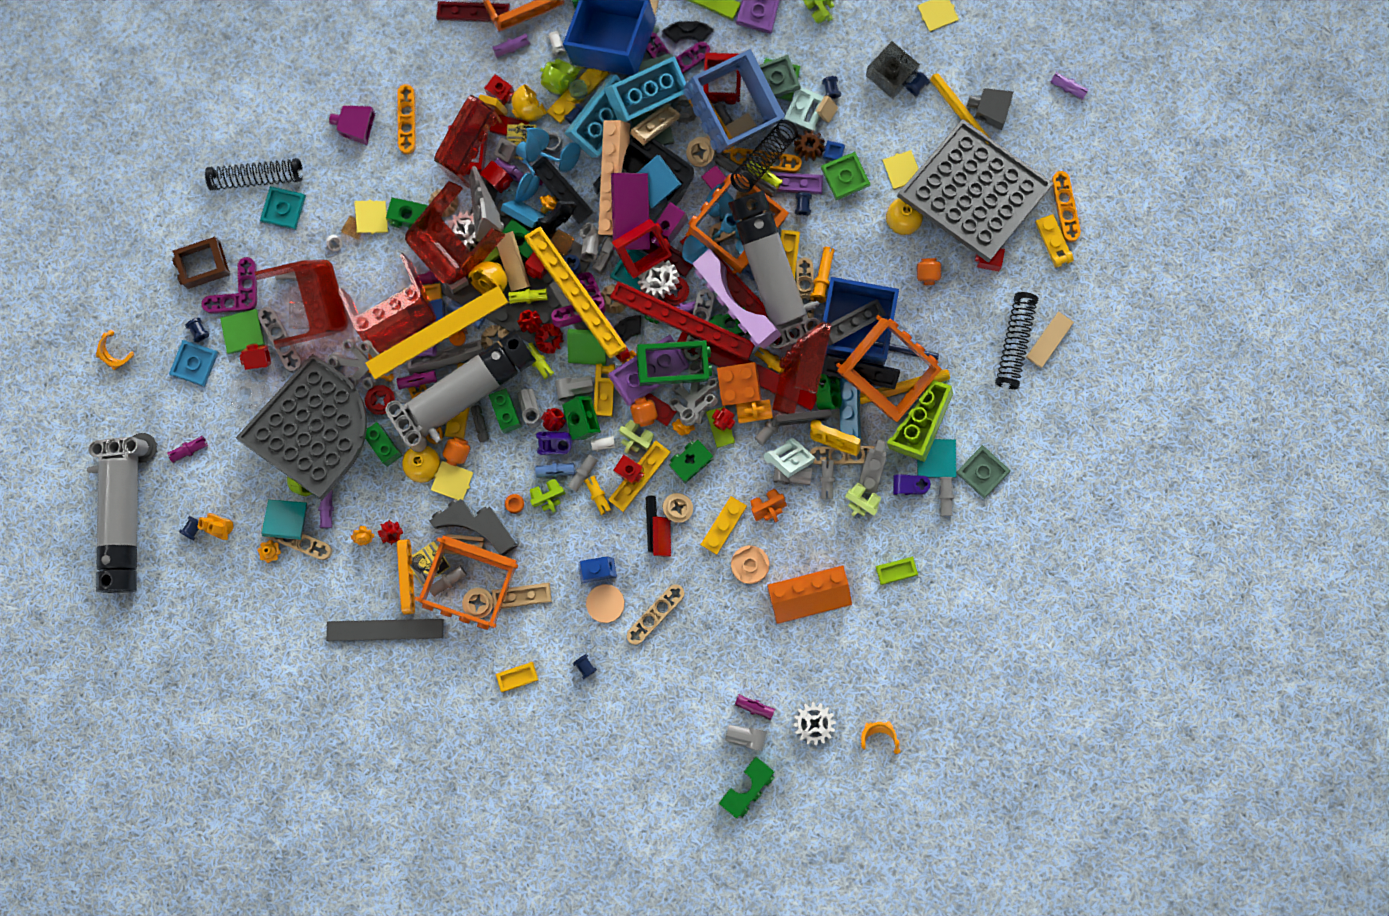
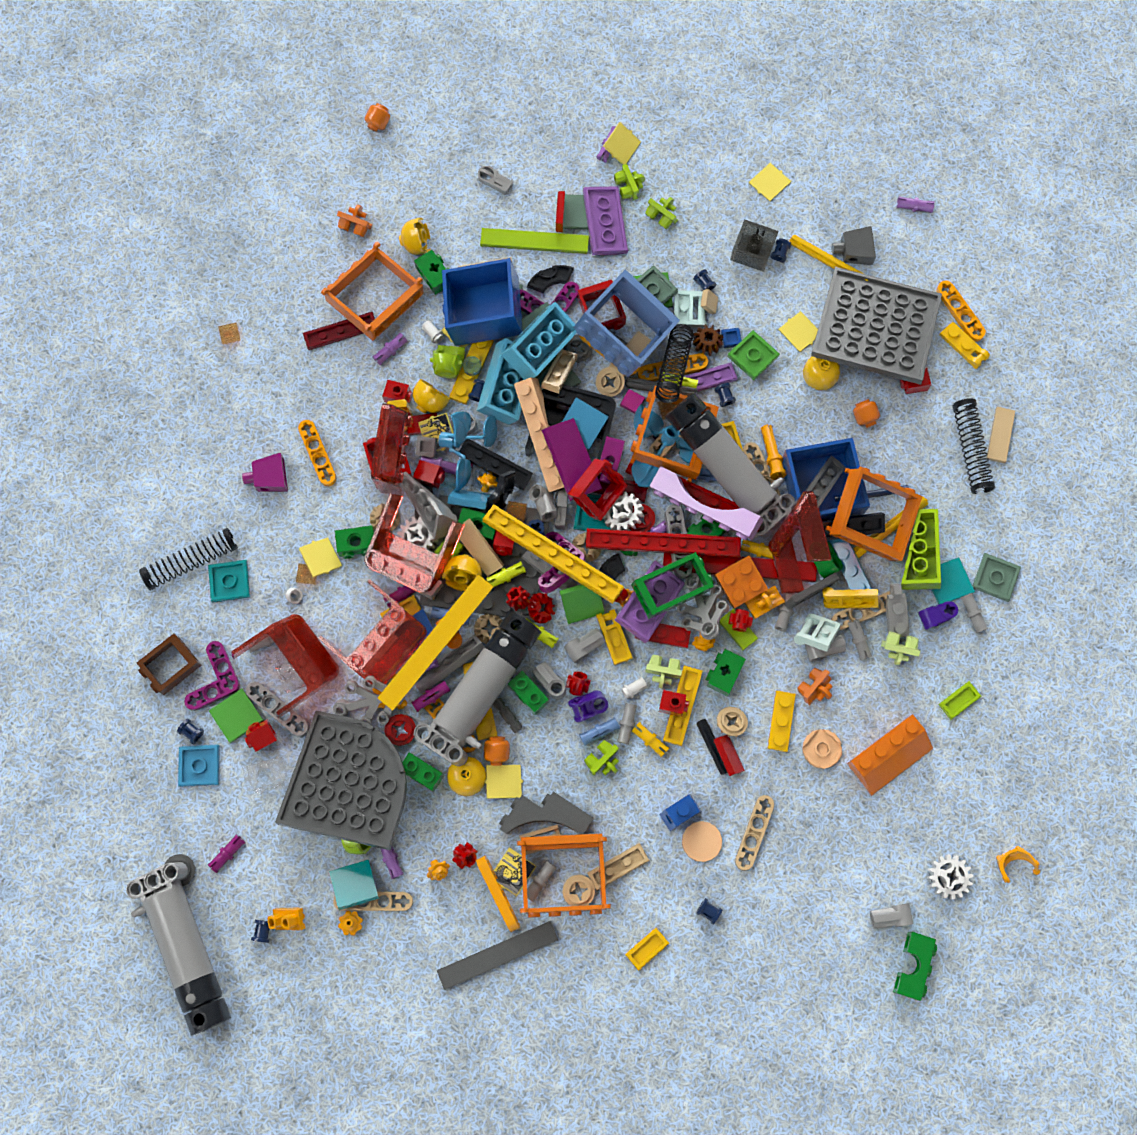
camera: 30 degrees left, 5 degrees down
(103, 354) = (103, 792): light orange helmet -> none
(514, 503) = (573, 779): orange tile -> none
(581, 418) = (614, 673): green brick -> none
(643, 411) = (663, 642): orange head -> none
(754, 707) = (887, 884): magenta pin -> none

